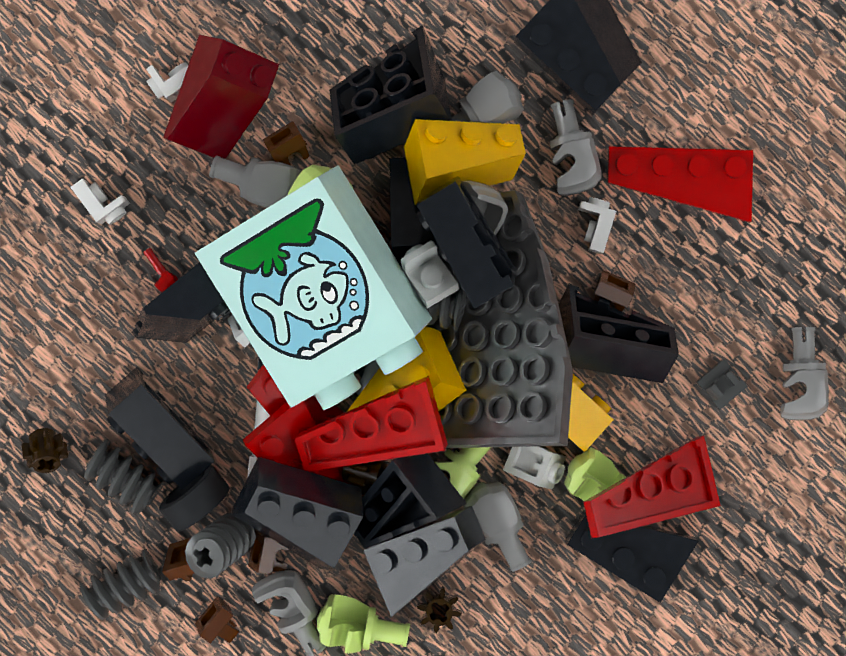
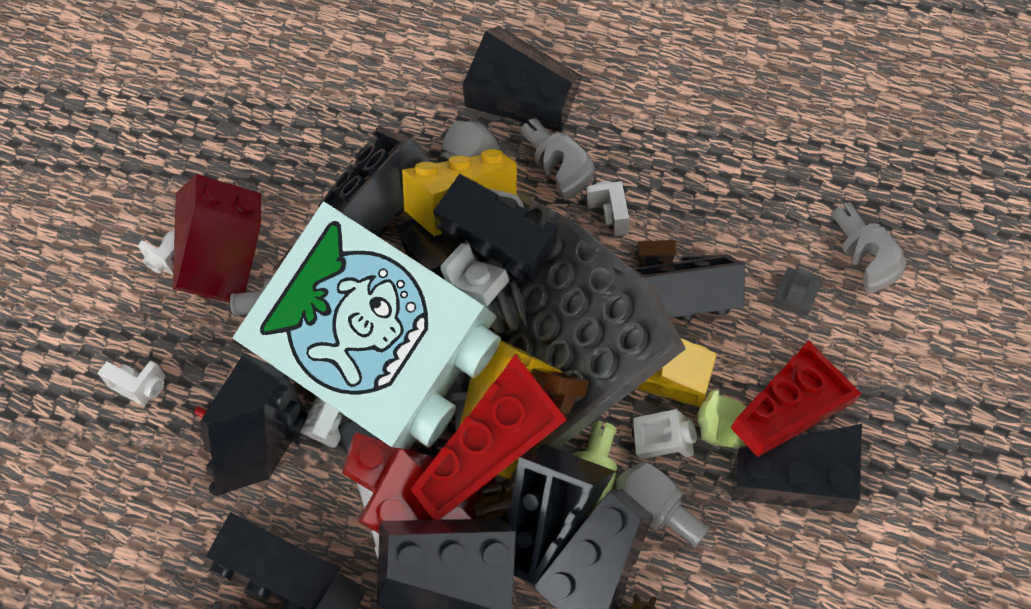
camera: 20 degrees left, 25 degrees down
(455, 410) = (561, 387): none -> reddish brown tile
(693, 177) = (677, 138): red wing -> none

